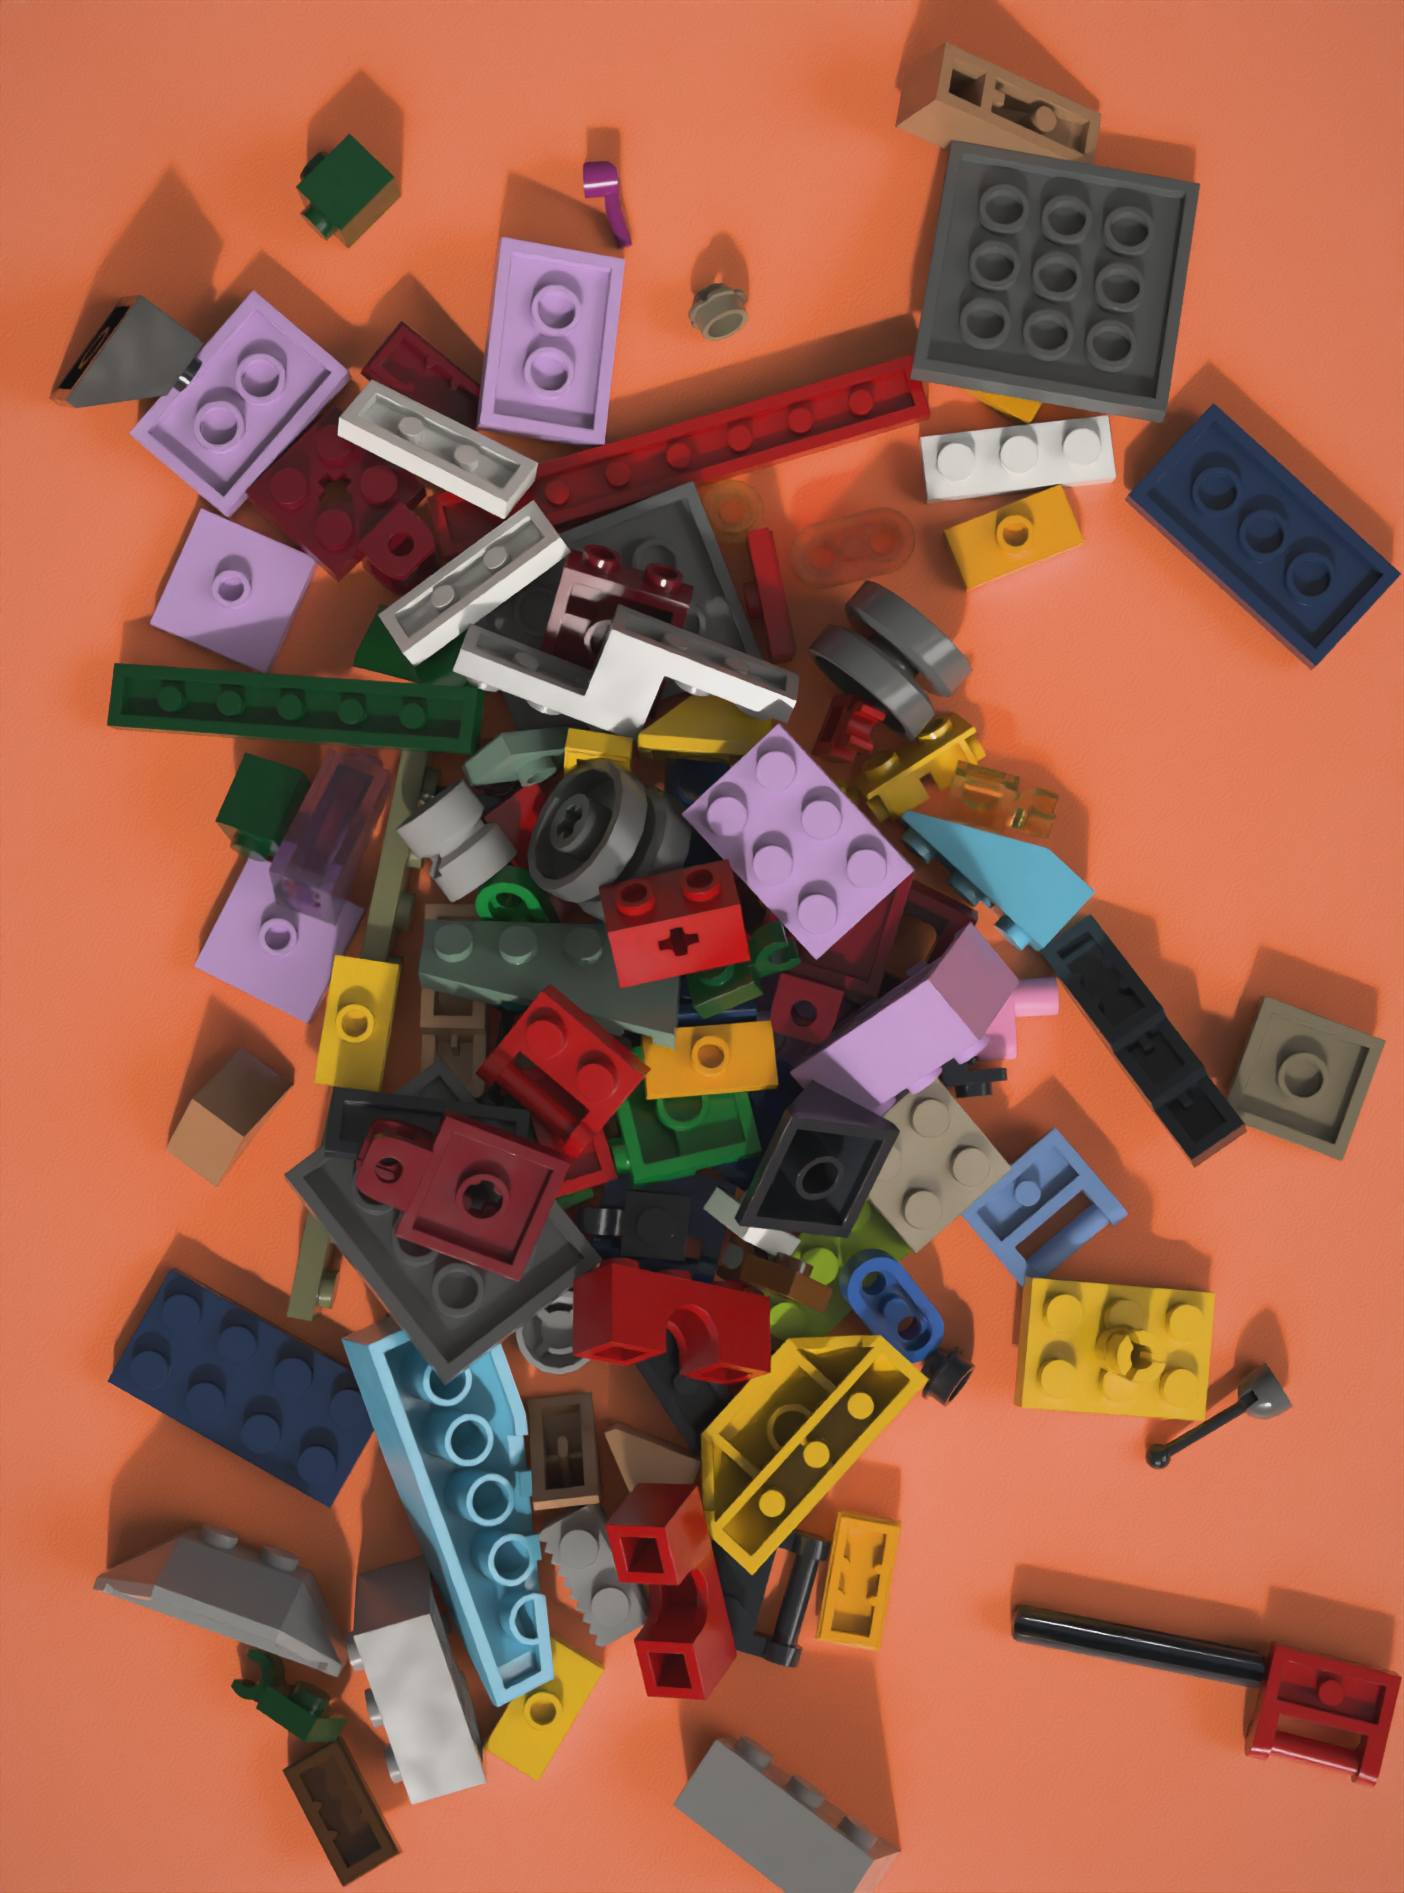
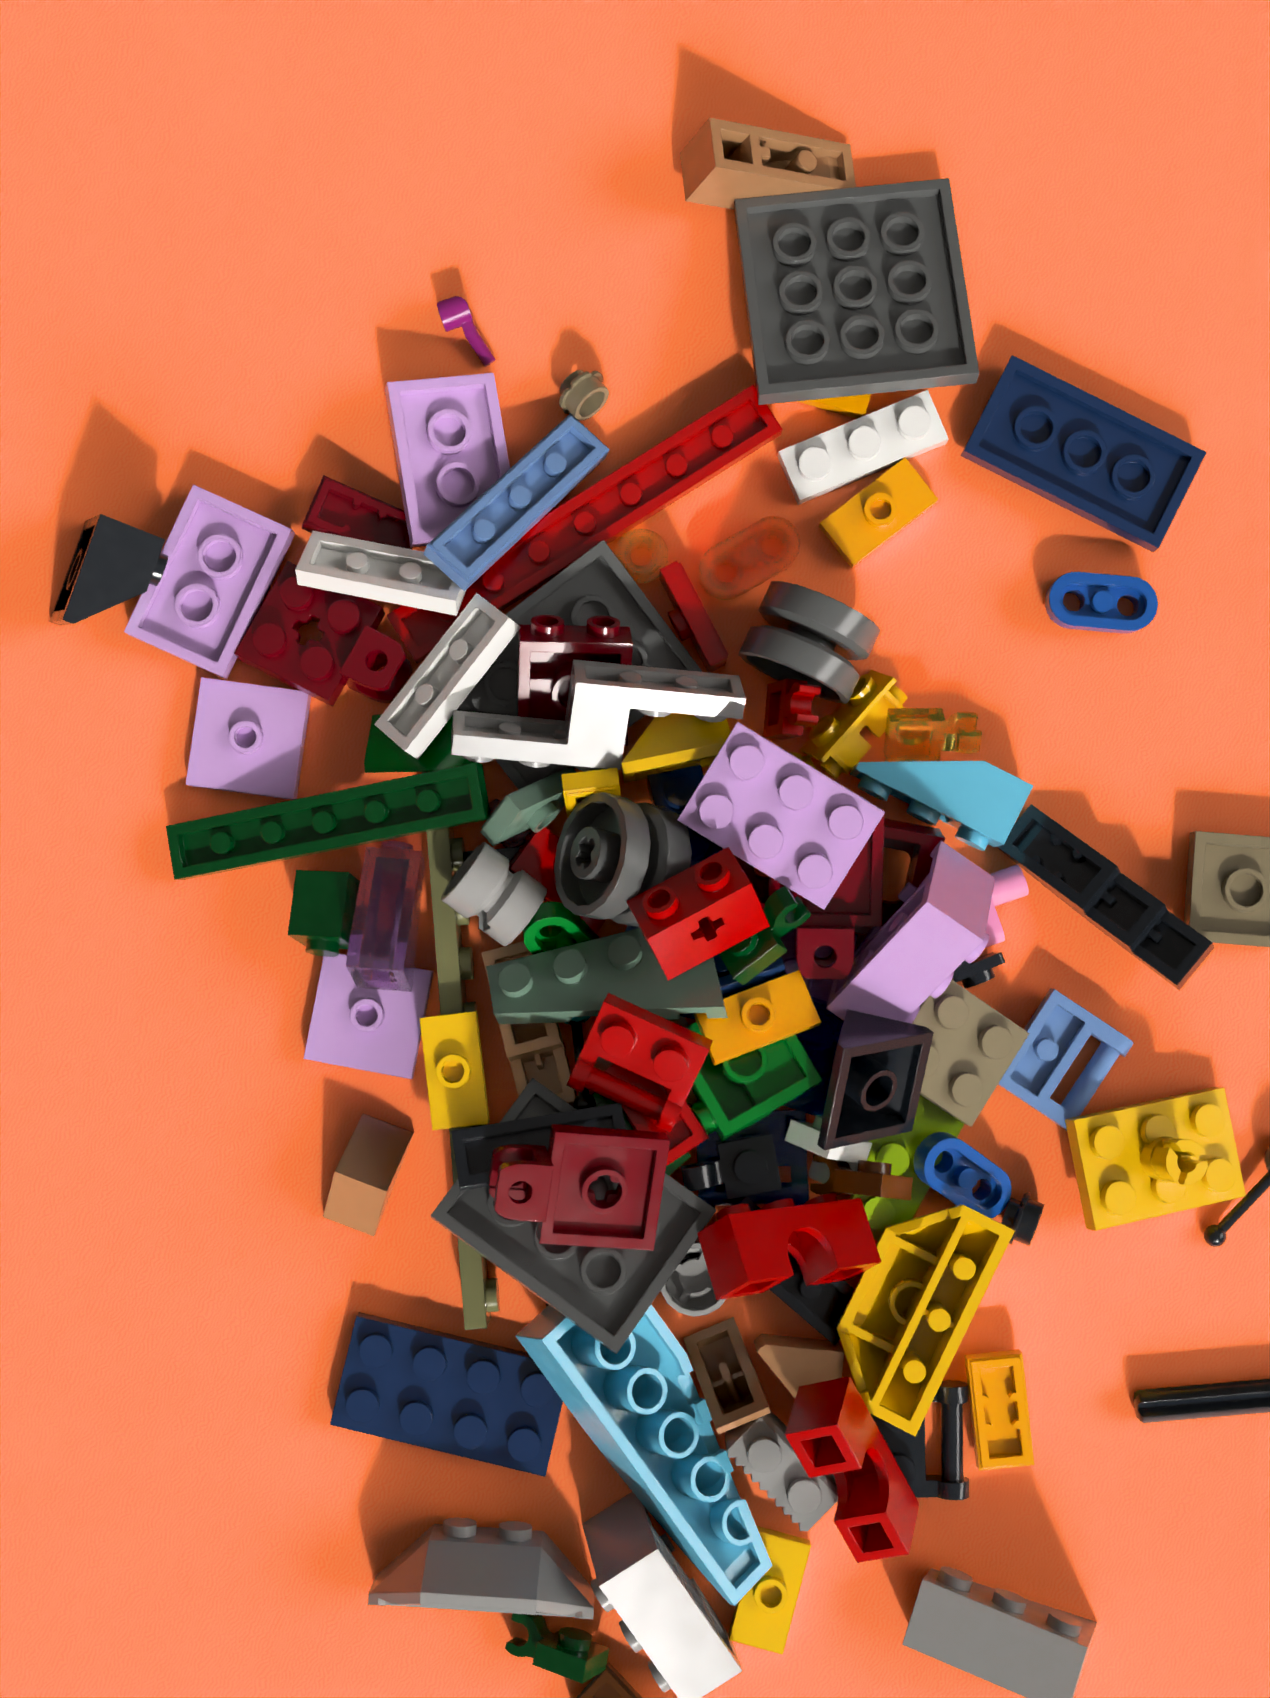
camera: 20 degrees left, 0 degrees up
(345, 191) = (246, 381): dark green brick -> none
(608, 411) = (516, 502): none -> medium blue tile
(1232, 709) = (1099, 601): none -> blue plate

